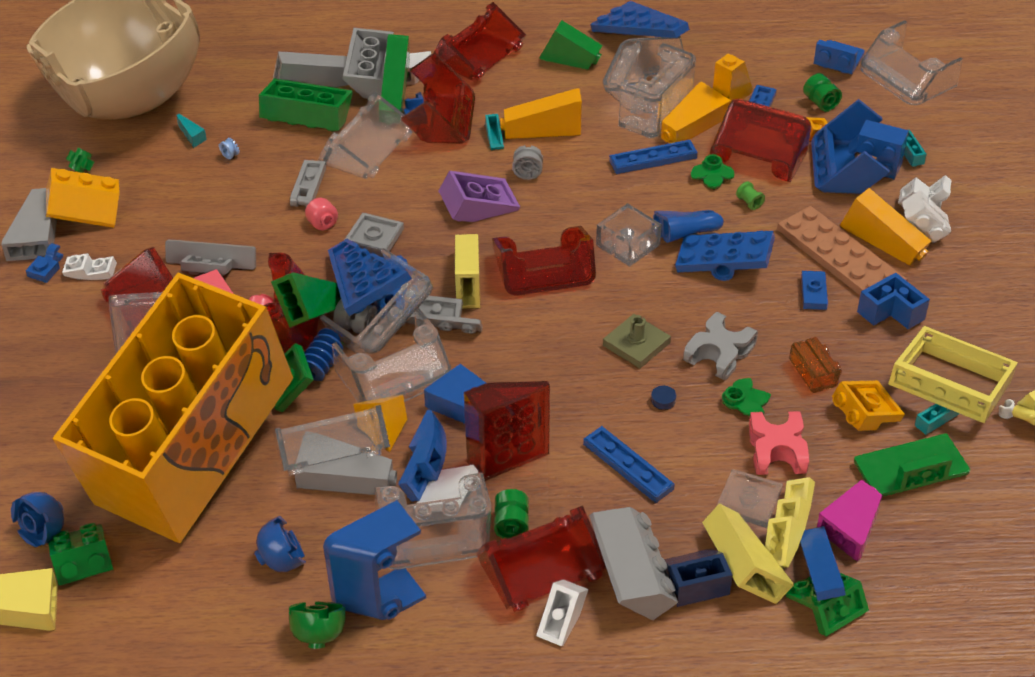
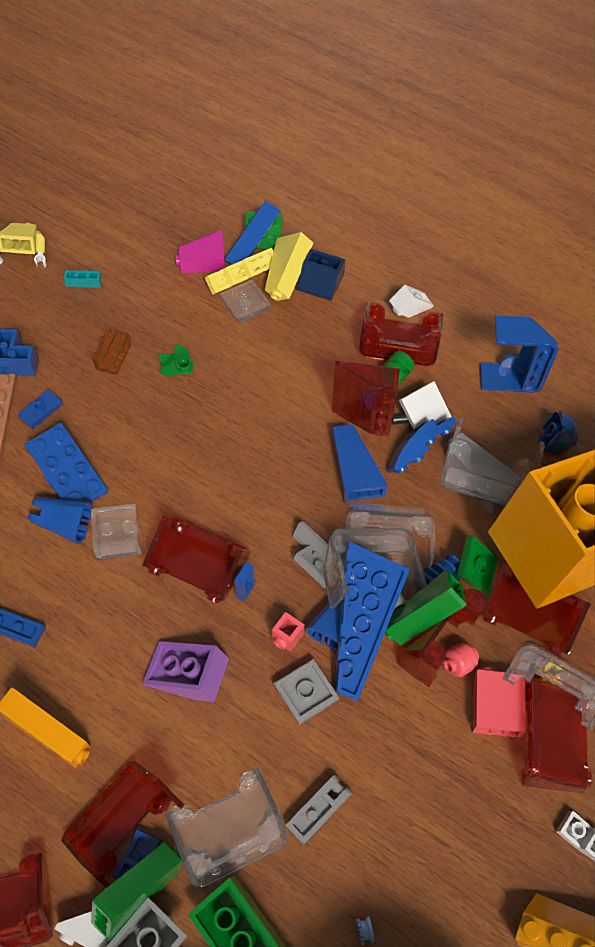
camera: 145 degrees left, 15 degrees up
(206, 257) = (474, 759): light grey bracket -> none
(317, 622) = (565, 371): green cylinder -> none
(320, 212) = (335, 749): coral head -> none
(393, 414) = (427, 494): light orange slope -> none
(419, 249) = (287, 632): none -> coral brick
(449, 527) = (457, 372): clear windscreen -> none
(467, 270) = (264, 585): light yellow slope -> none
(486, 256) = (244, 581): none -> blue plate
(493, 131) = (95, 758): teal piece -> none
(527, 162) = (111, 678): light grey wheel -> none
(629, 464) = (291, 368): blue tile -> none
(634, 561) = (352, 294): light grey slope -> none
(636, 340) = (198, 449): olive tile -> none
(663, 397) = (225, 395): dark blue tile -> none
(720, 345) = (151, 403): light grey piece -> none
(778, 443) = (192, 319): coral piece -> none
(866, 404) = (115, 307): light orange plate -> none
(912, 465) = (135, 261): green bracket -> none
(944, 391) = (33, 264): light yellow window -> none

